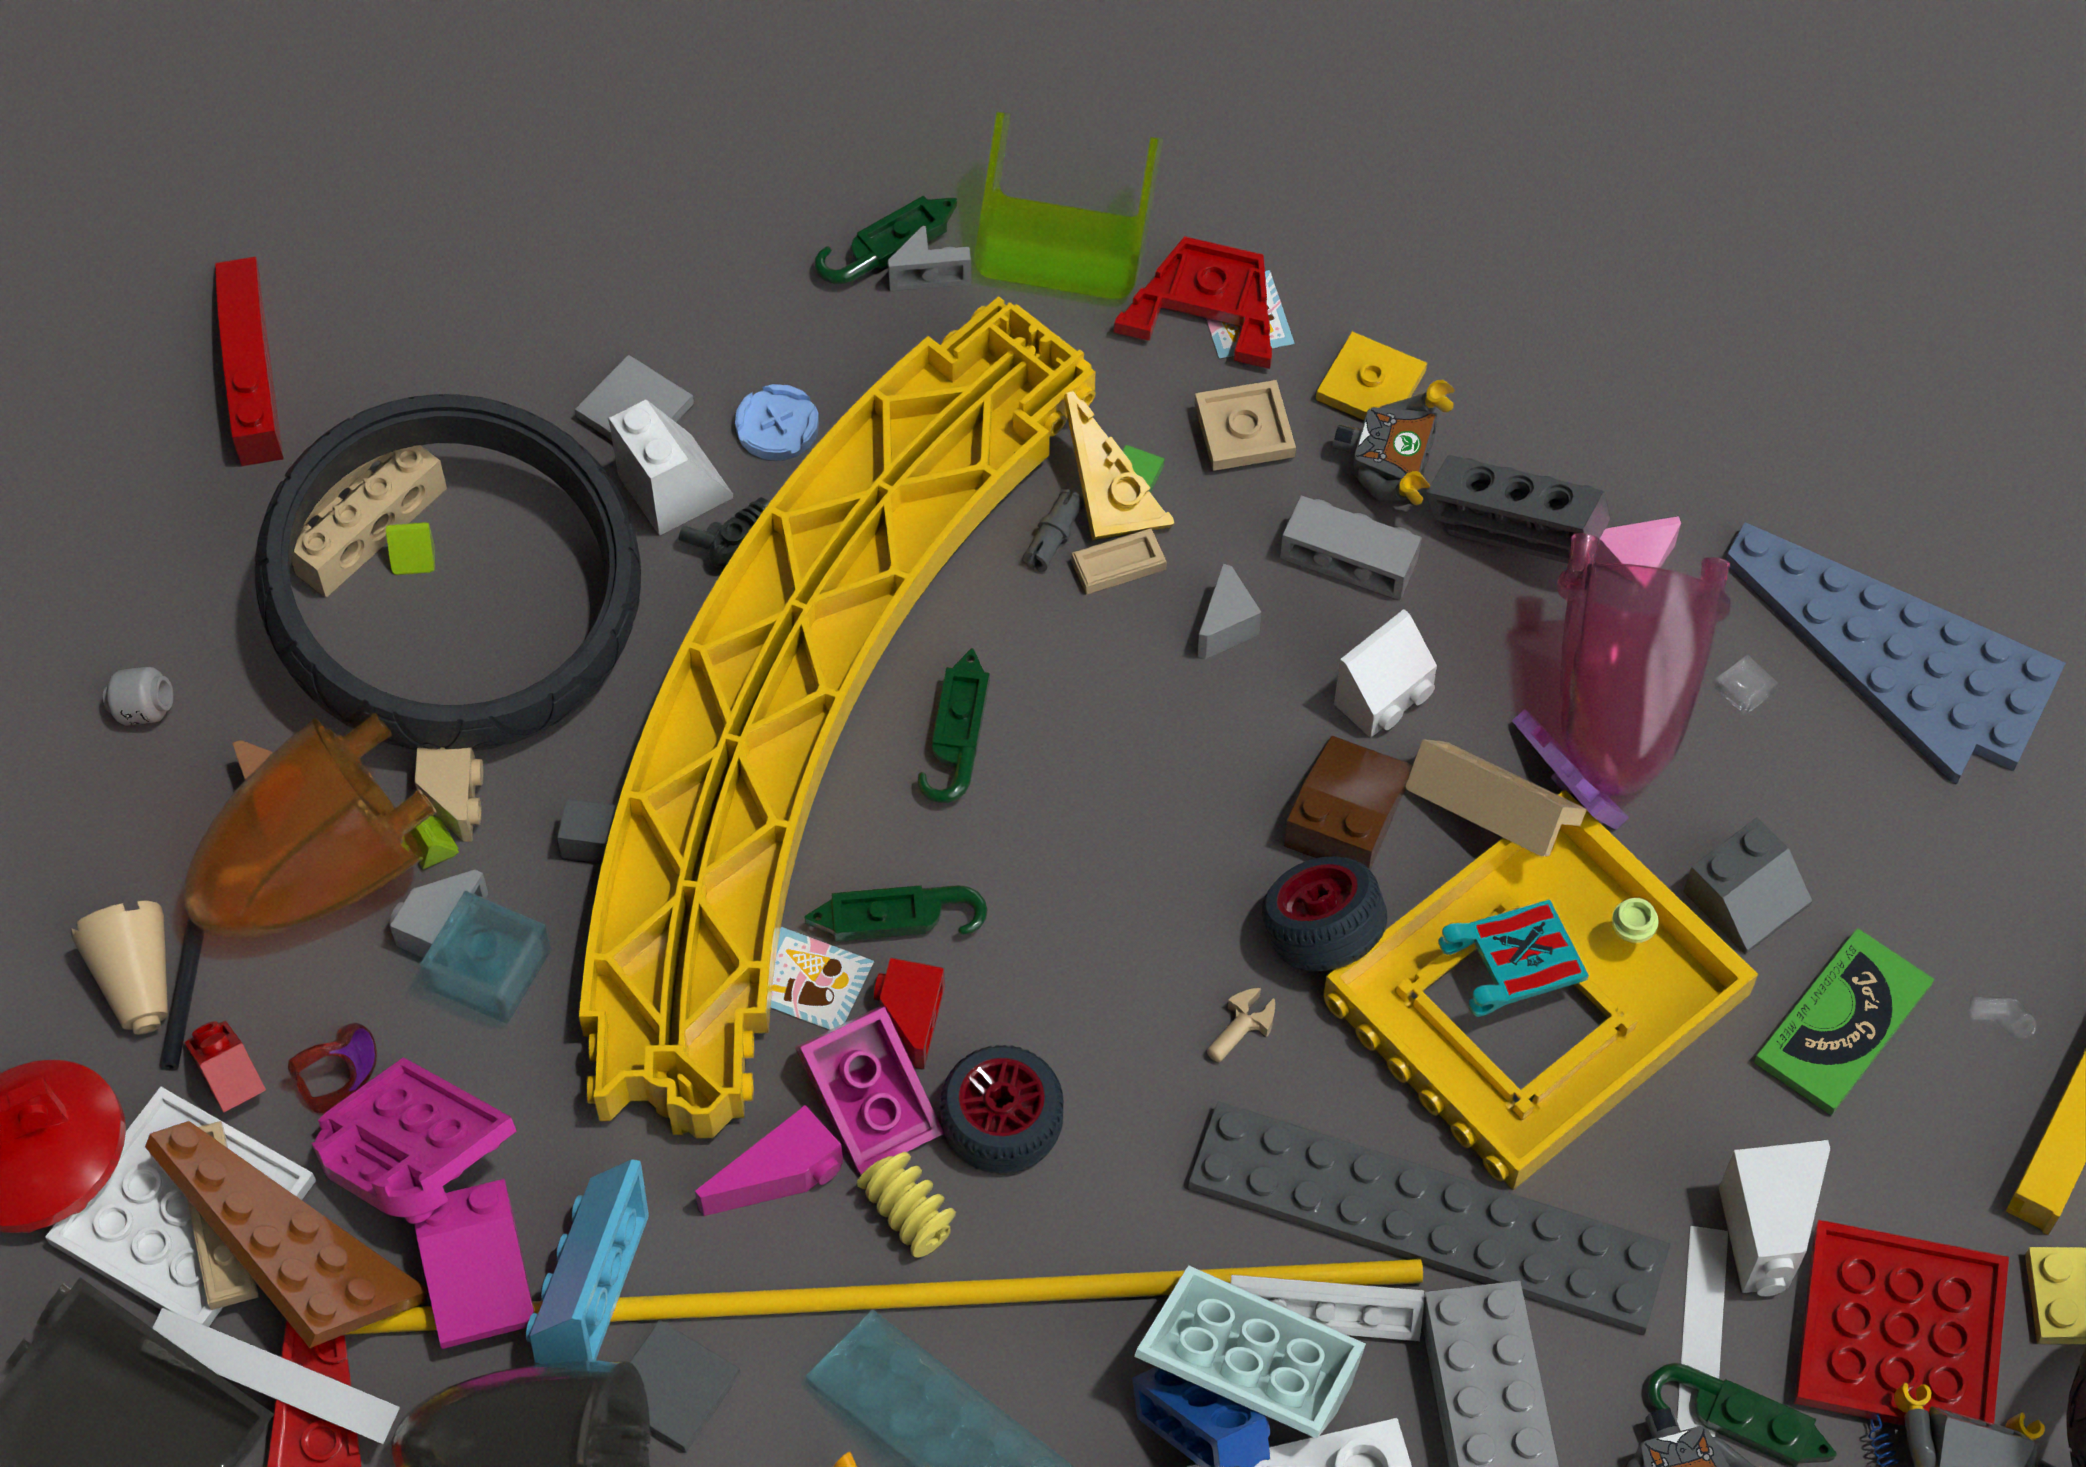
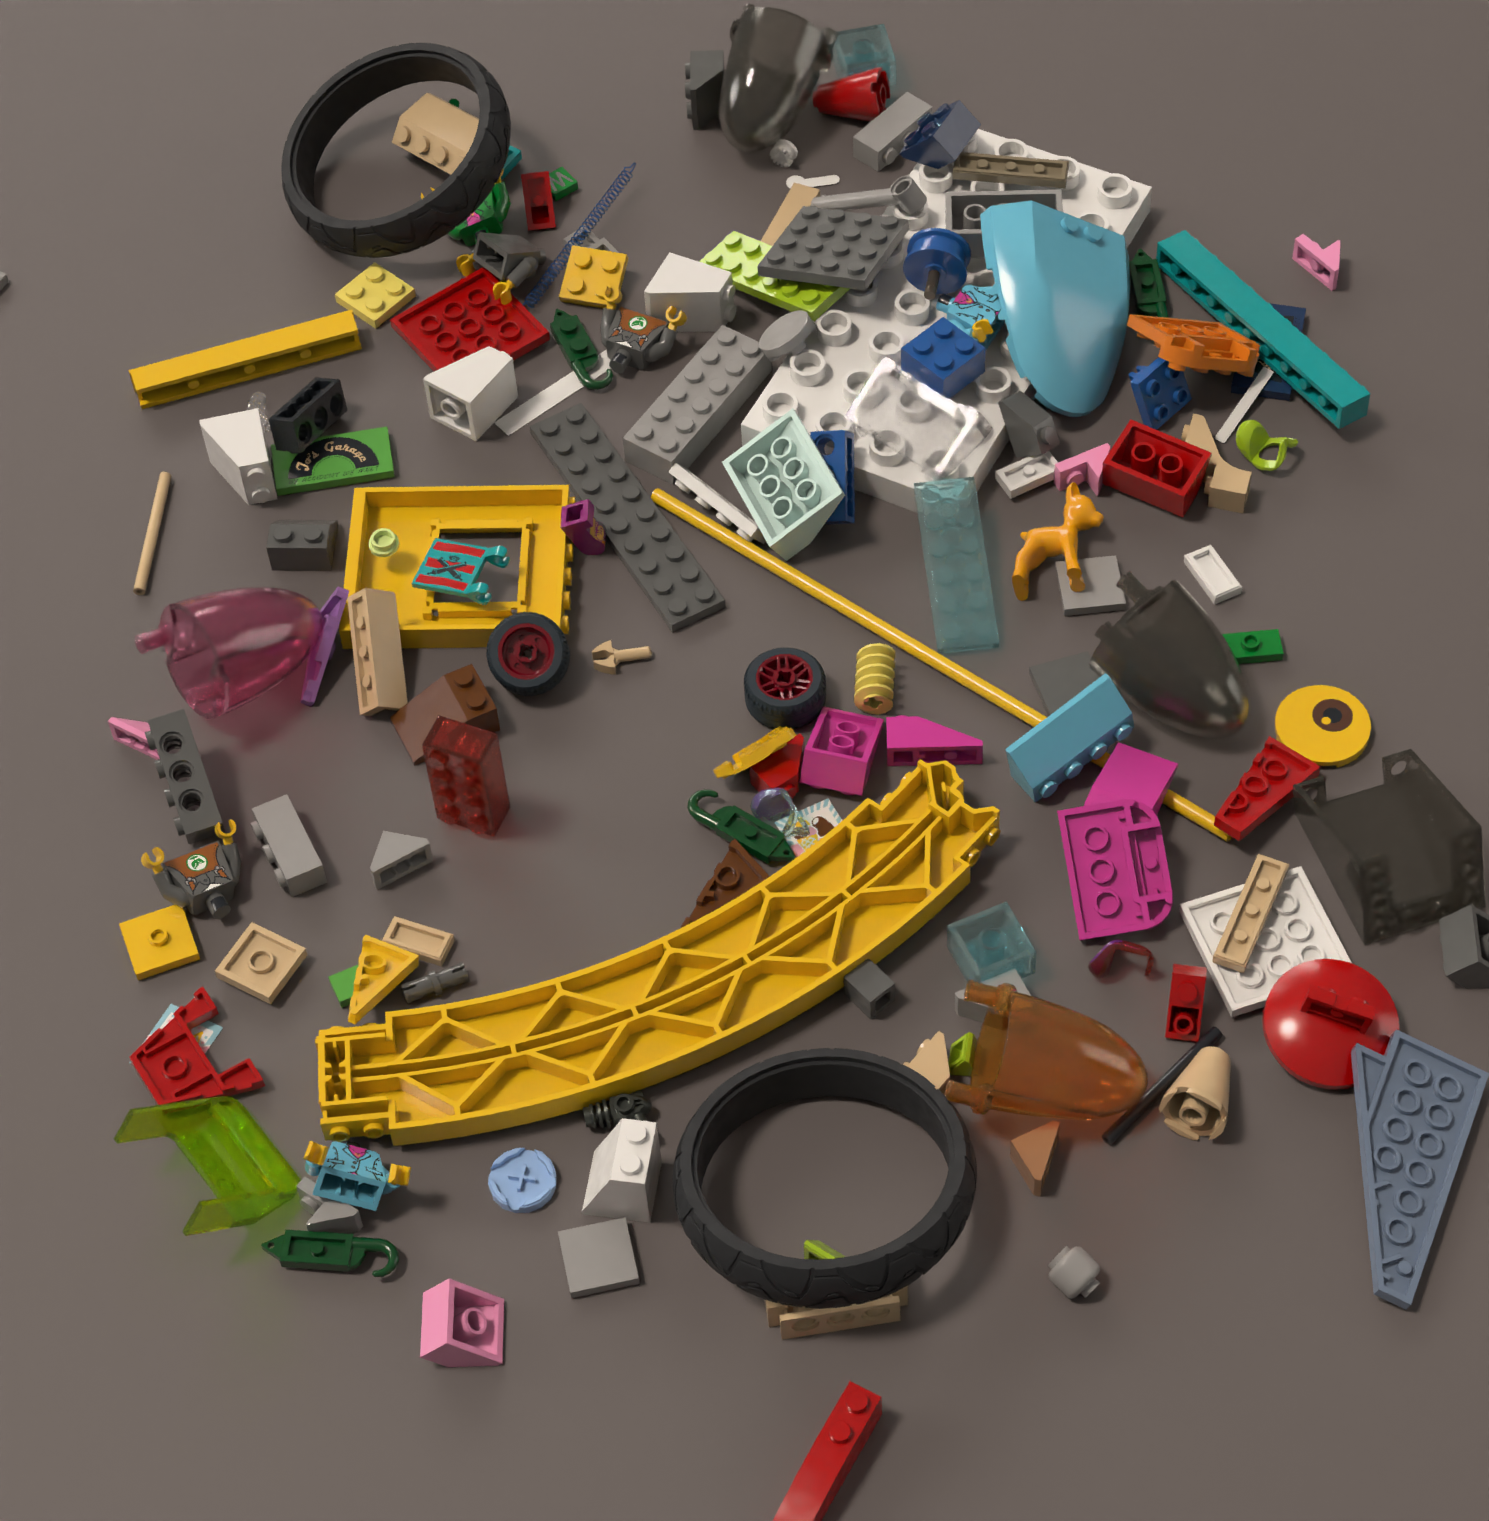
camera: 135 degrees left, 5 degrees down
(280, 1377) = (1280, 807): white sticker -> none
(297, 1256) = (1224, 846): dark orange wing -> none
(698, 259) = (461, 1326): none -> bright pink slope
(843, 842) = (730, 880): none -> reddish brown wing
(892, 946) = (776, 804): none -> clear light blue piece
(928, 286) = (352, 1174): none -> medium azure torso
(952, 995) = (755, 752): none -> yellow tile
(958, 726) = (605, 906): dark green plate -> none
(1215, 688) = (466, 776): none -> clear red brick
(1385, 675) = (357, 758): white slope -> none
(1434, 1133) = (583, 528): none -> magenta leg
(1922, 667) = (81, 586): sand blue wing -> none
(1924, 1023) = (307, 415): none -> black brick
(1927, 780) = (152, 533): none -> tan piece
(1928, 913) = (241, 454): none -> white slope

